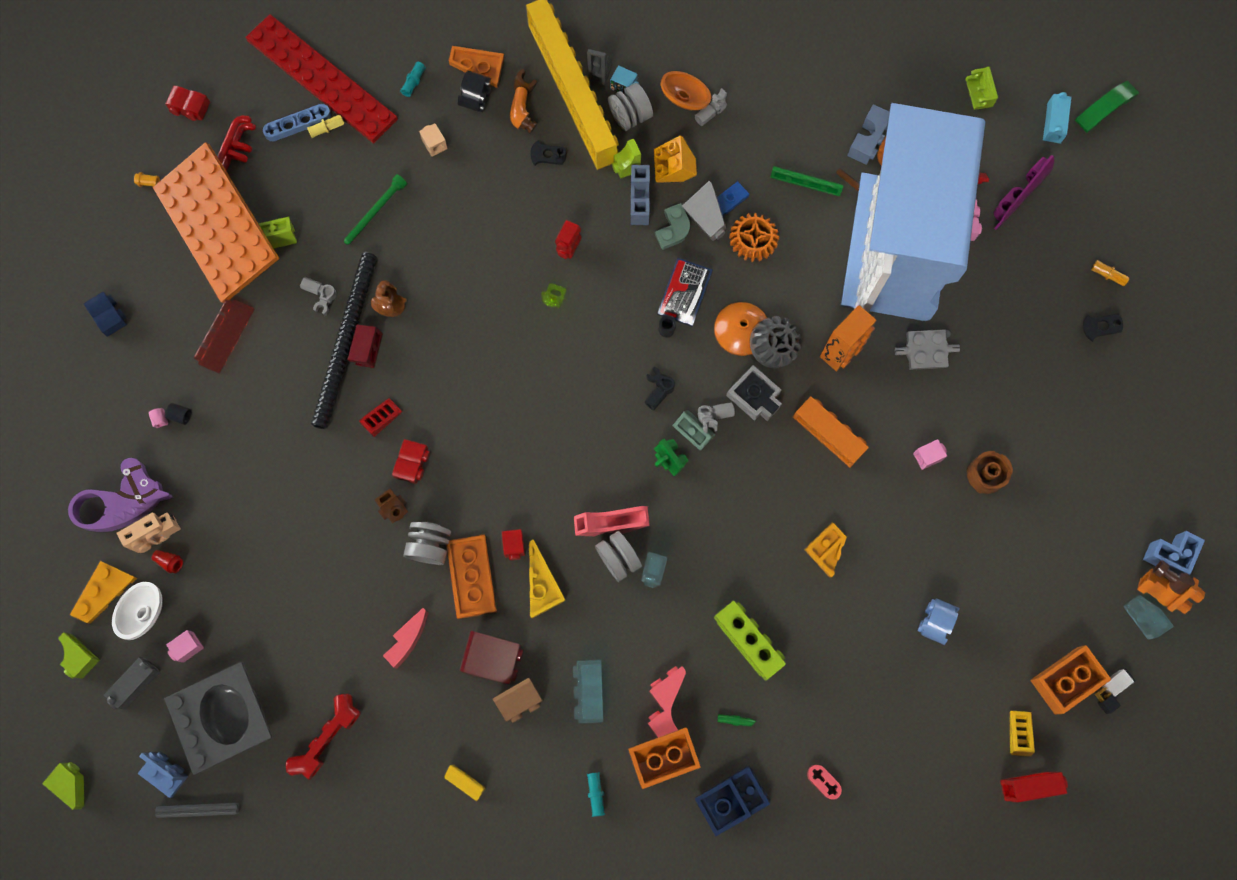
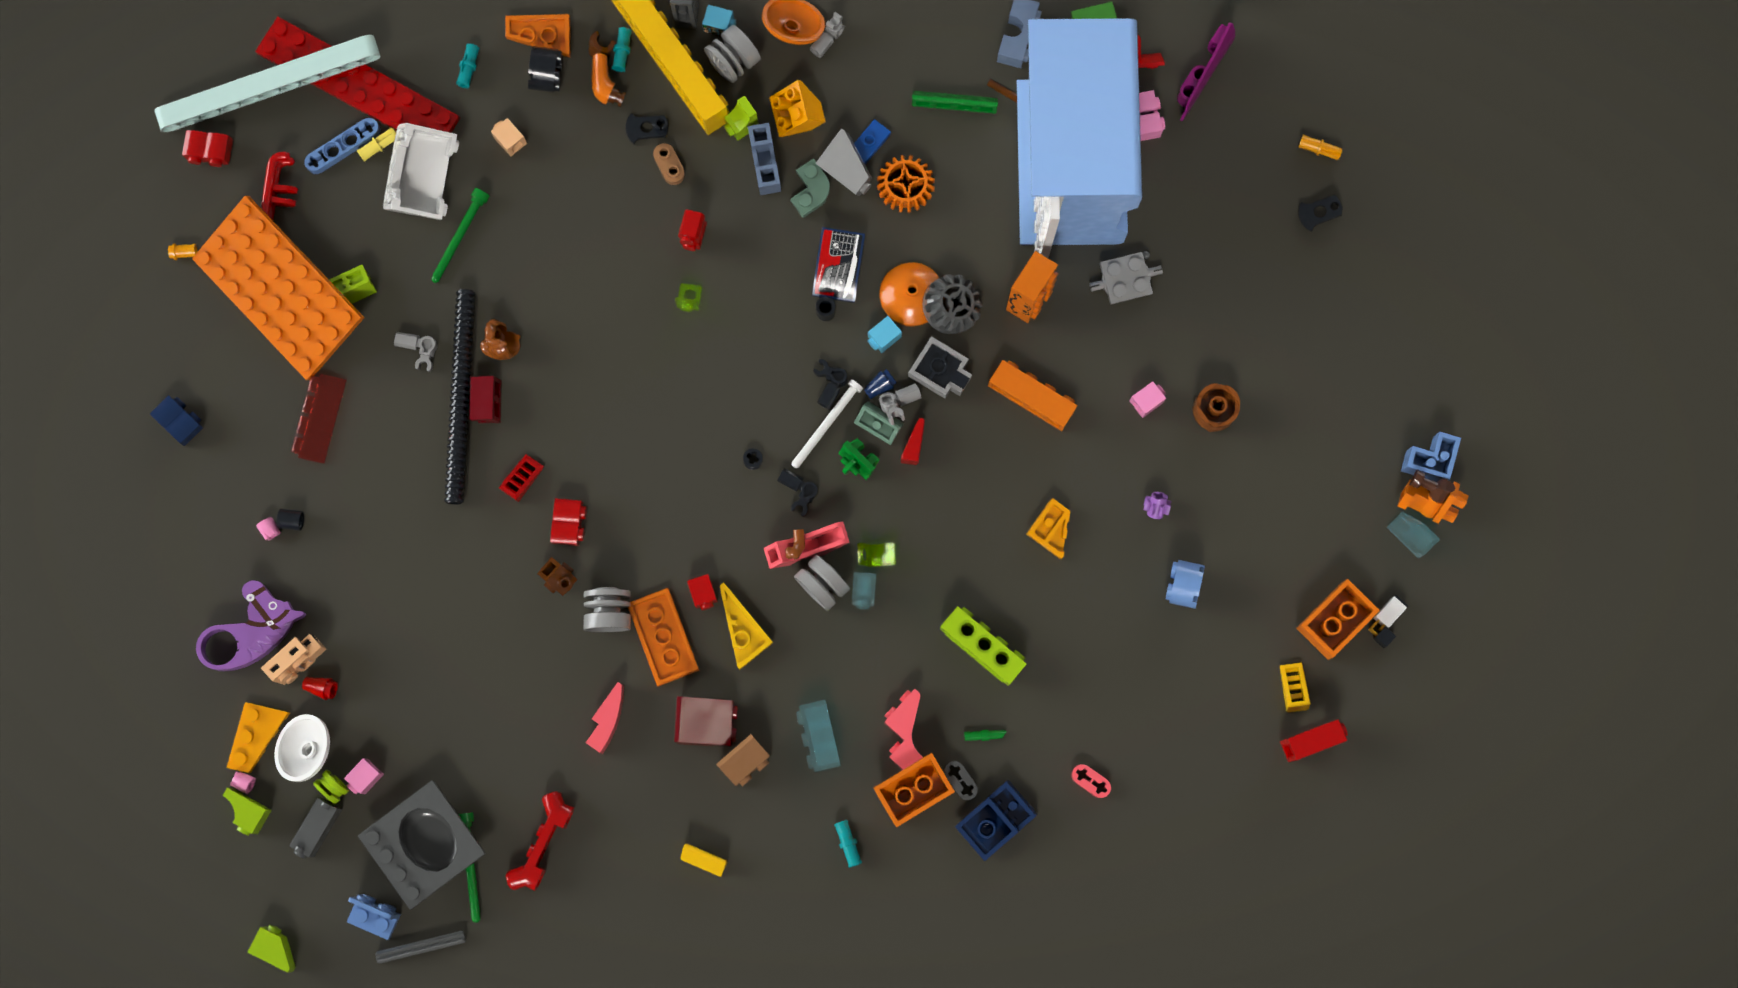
camera: 10 degrees left, 5 degrees up
(80, 630) = (243, 782): none -> bright pink hose
(153, 650) = (331, 787): none -> lime wheel
(248, 61) = (267, 83): none -> light aqua beam
(265, 702) = (468, 818): none -> green piece
(354, 151) = (419, 171): none -> white windscreen
(540, 89) = (621, 49): none -> teal pin
(560, 184) = (669, 162): none -> medium nougat plate
(574, 440) = (746, 461): none -> black bush
(605, 518) = (799, 545): none -> dark orange arm
(622, 474) = (808, 490): none -> black bar
(649, 421) = (854, 387): none -> white bar
(671, 541) = (877, 554): none -> clear neon green bracket
(701, 397) = (881, 383): none -> dark blue cone
(711, 754) = (964, 777): none -> dark grey beam
(712, 357) = (884, 335): none -> medium azure brick
(718, 458) = (912, 450): none -> red slope
(923, 547) = (1157, 505): none -> medium lavender gear

